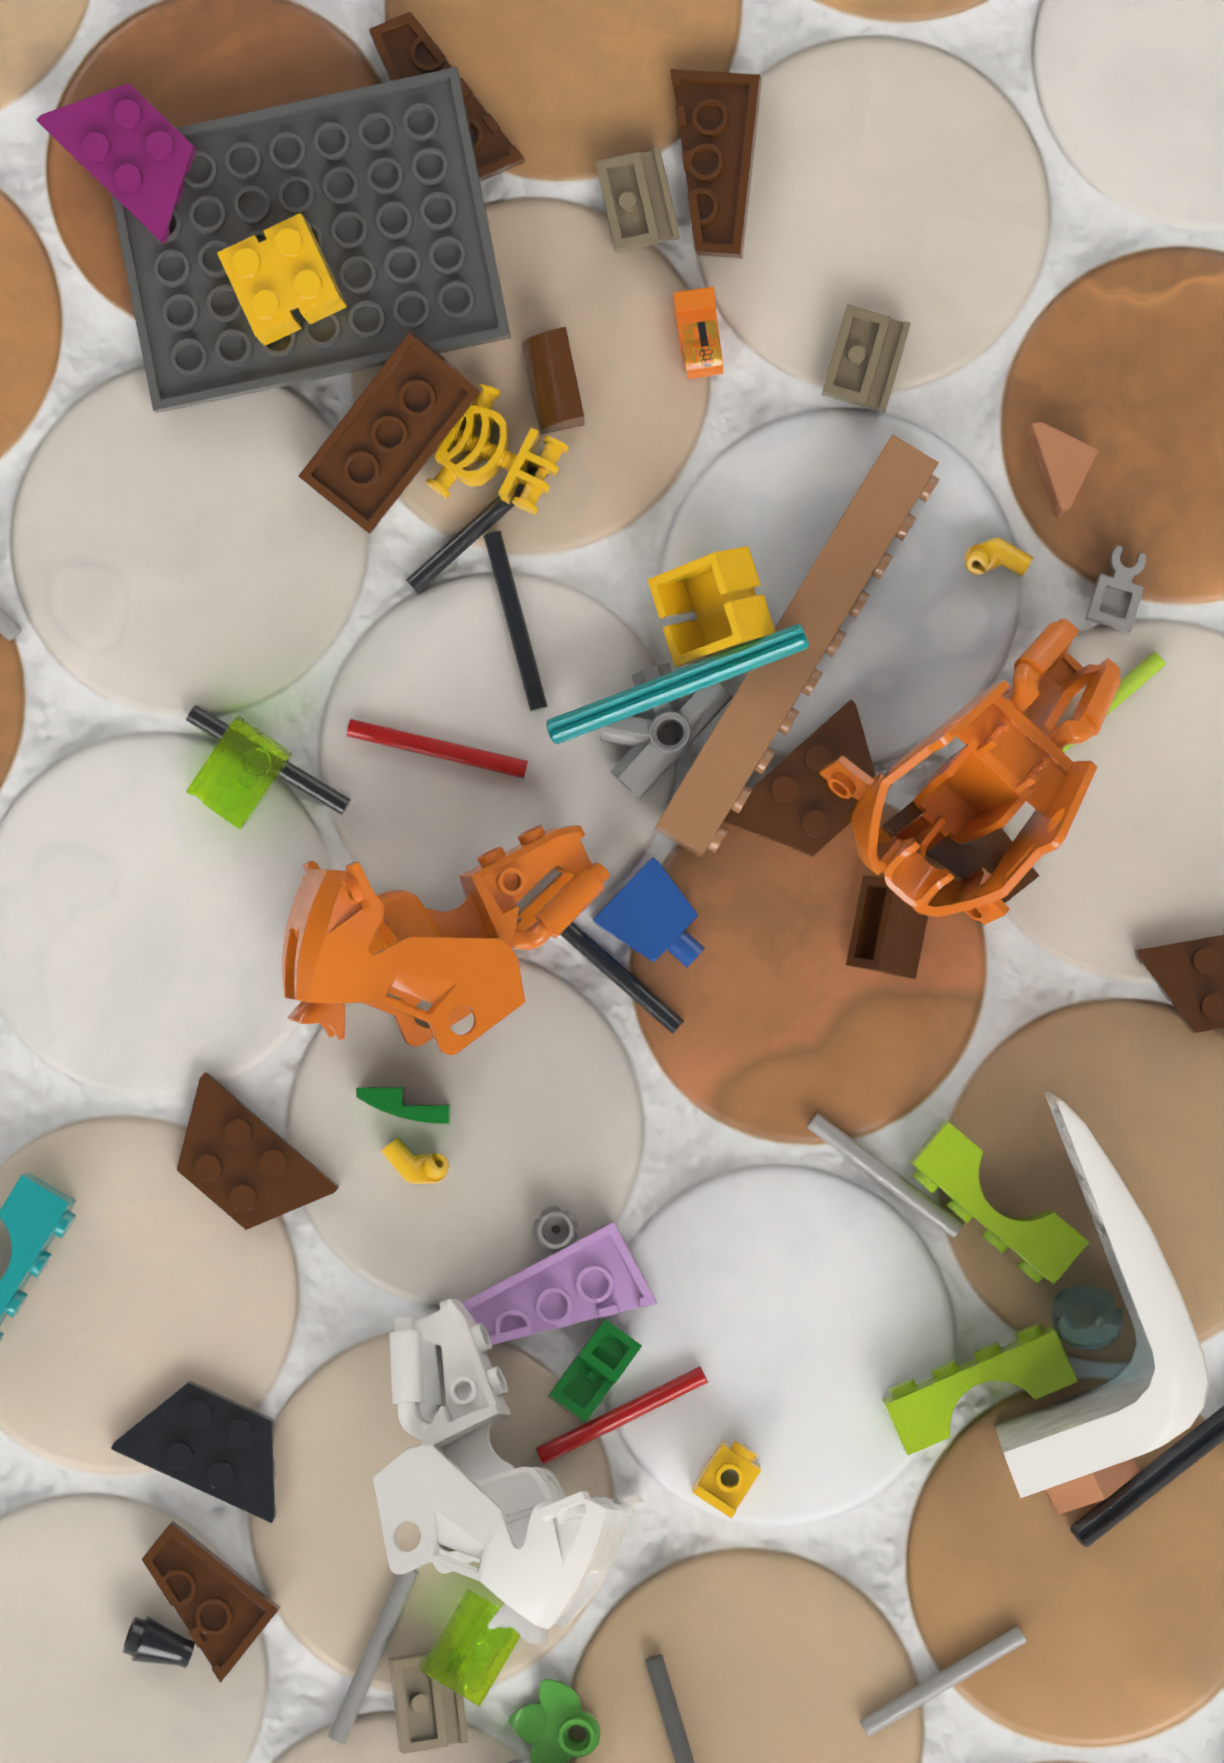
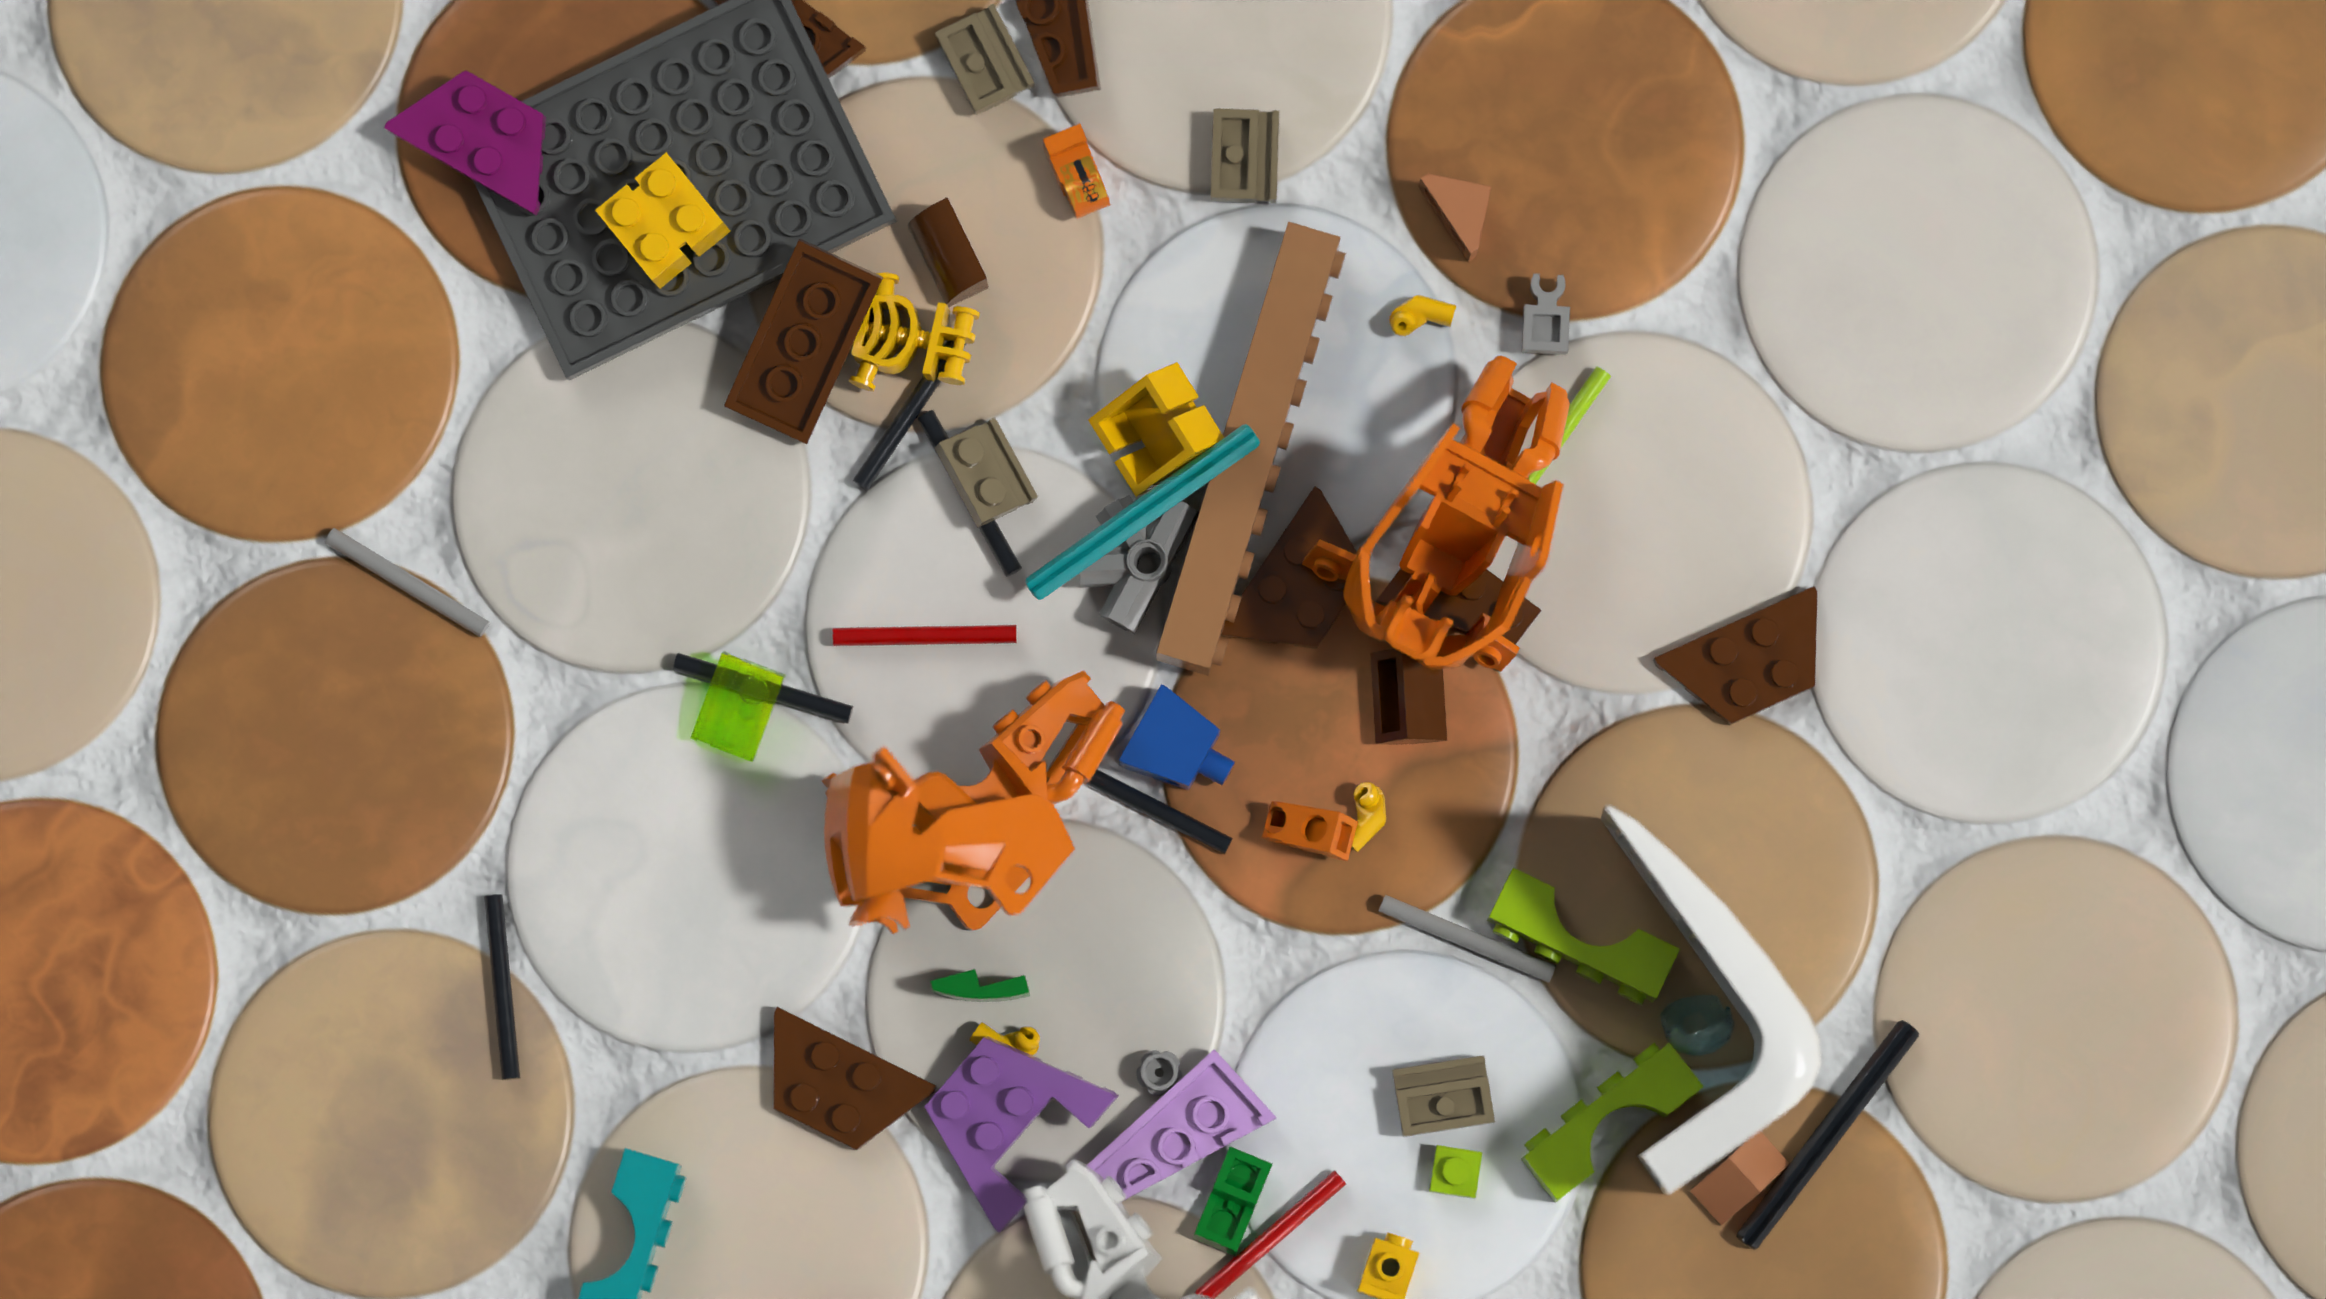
camera: 15 degrees left, 5 degrees down
(387, 1220) = (990, 1107): none -> medium lavender wing
(536, 605) = (986, 472): none -> dark tan plate
(761, 1033) = (1310, 829): none -> orange leg
(816, 1397) = (1455, 1171): none -> lime plate
(822, 1033) = (1370, 813): none -> yellow arm
(823, 1323) = (1443, 1096): none -> dark tan plate

